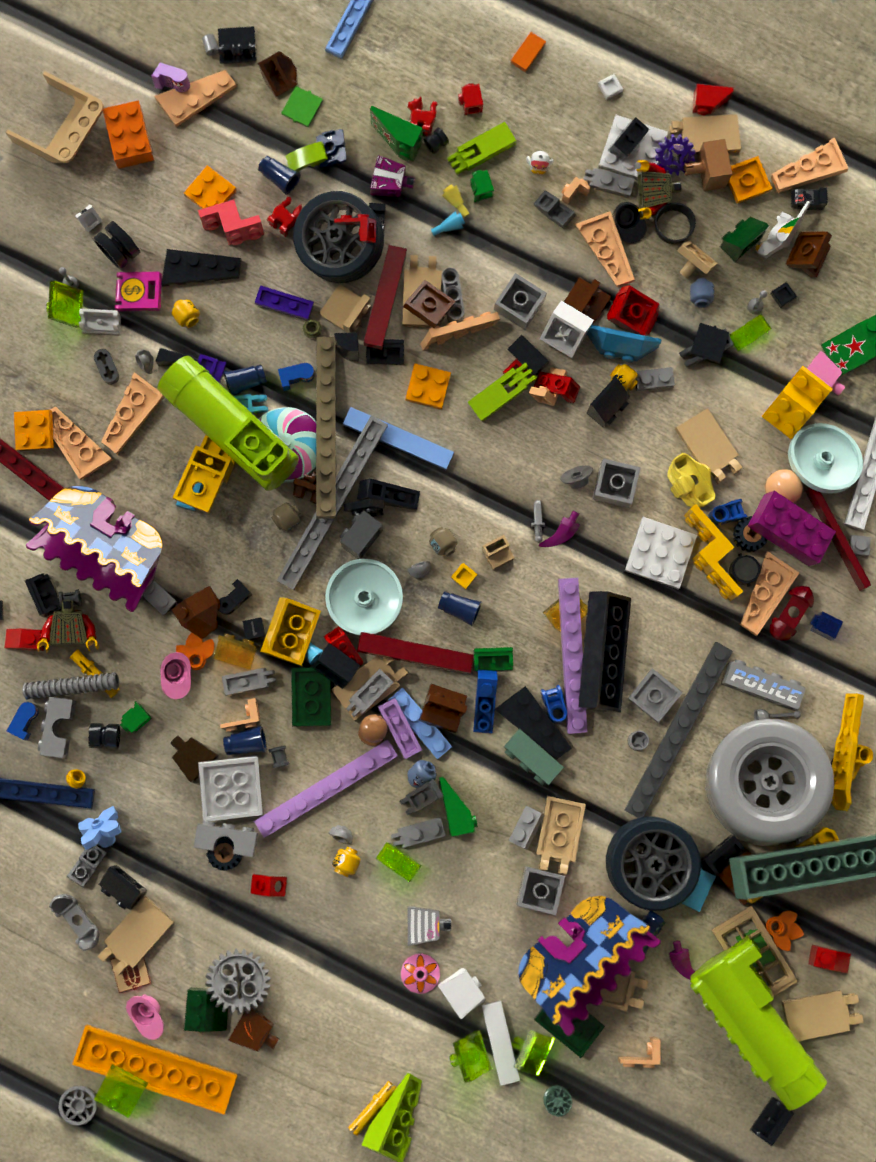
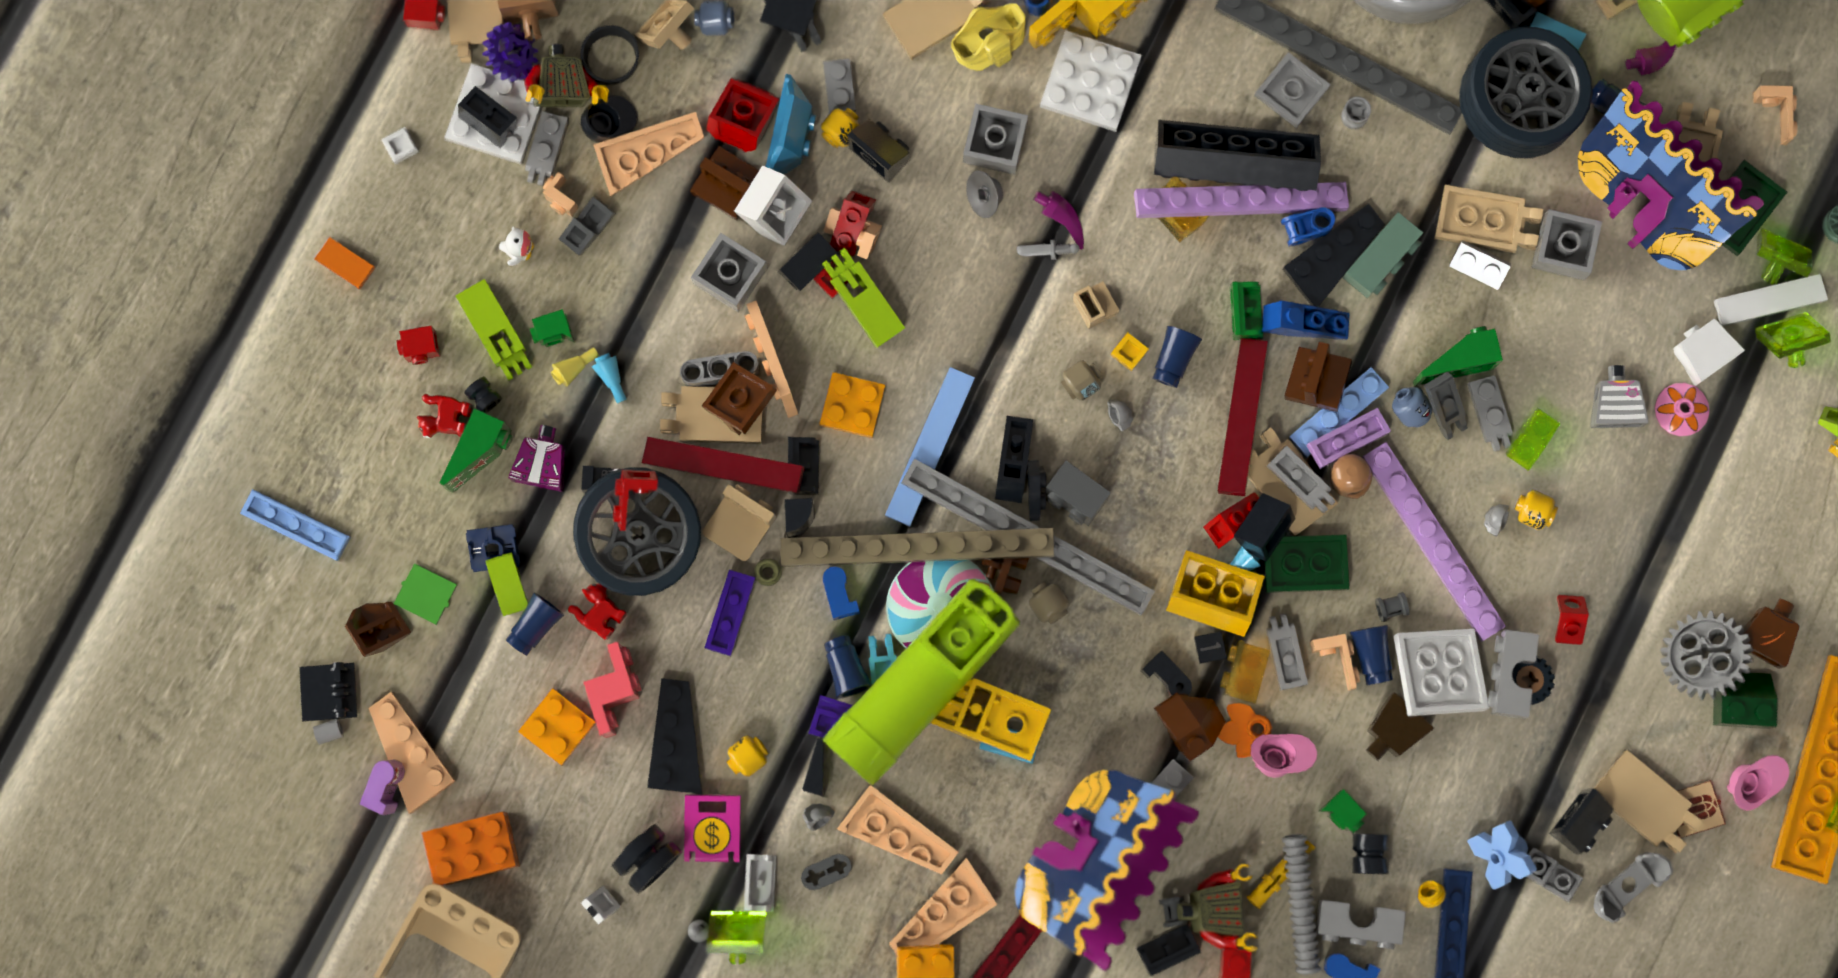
camera: 80 degrees left, 0 degrees up
(364, 596) = (1164, 489): light aqua dish -> none

